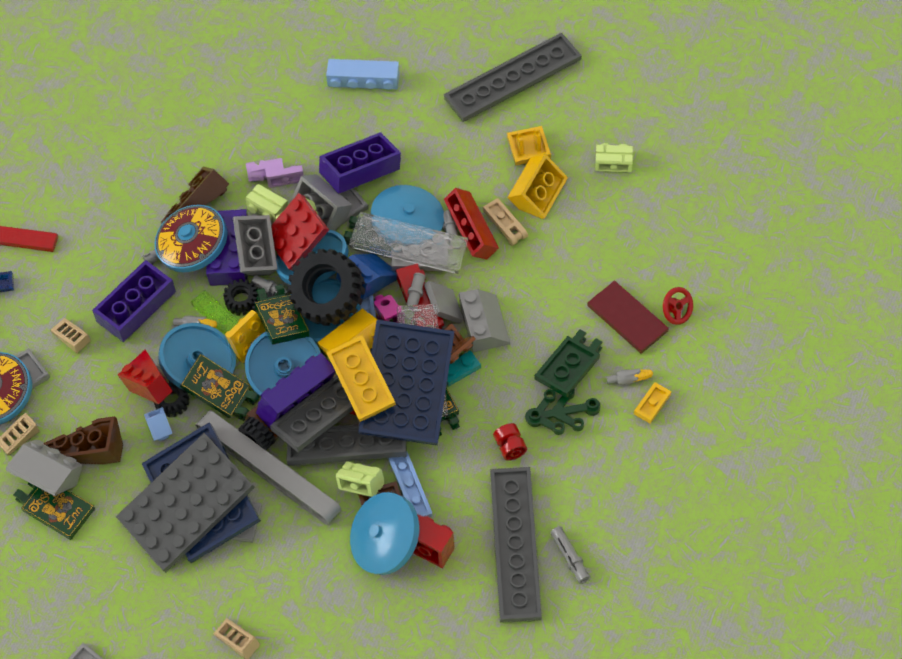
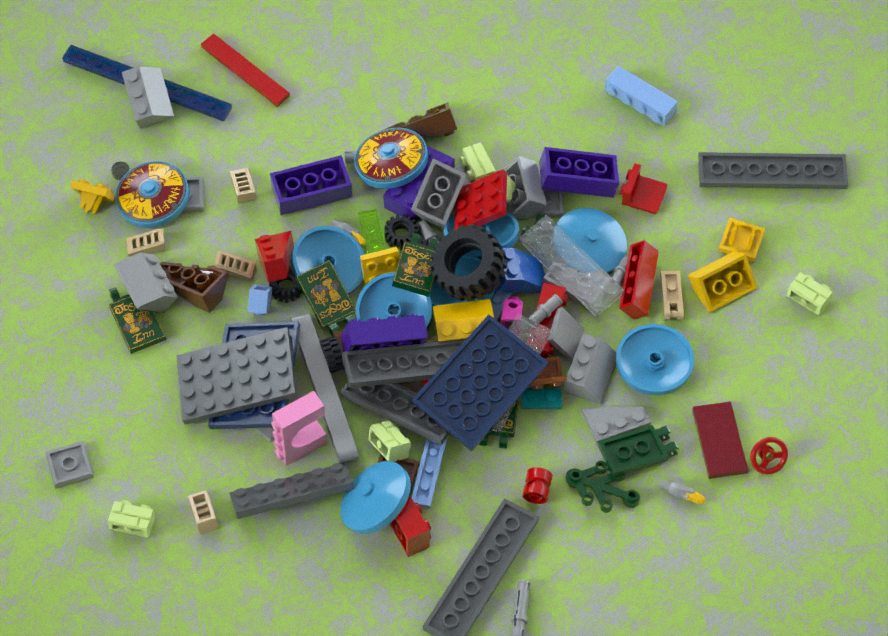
camera: 30 degrees right, 0 degrees up
(111, 403) = (235, 260): none -> tan slope
(273, 172) = (502, 140): lavender plate -> none
(276, 514) = (297, 428): none -> bright pink arch
(303, 572) = (291, 490): none -> dark grey plate
(361, 378) = (441, 356): yellow plate -> none
(421, 151) = (642, 192): none -> red bracket
(531, 281) = (655, 359): none -> dark azure dish
(533, 352) = (614, 421): none -> light grey wing
(652, 402) = (685, 526): yellow plate -> none

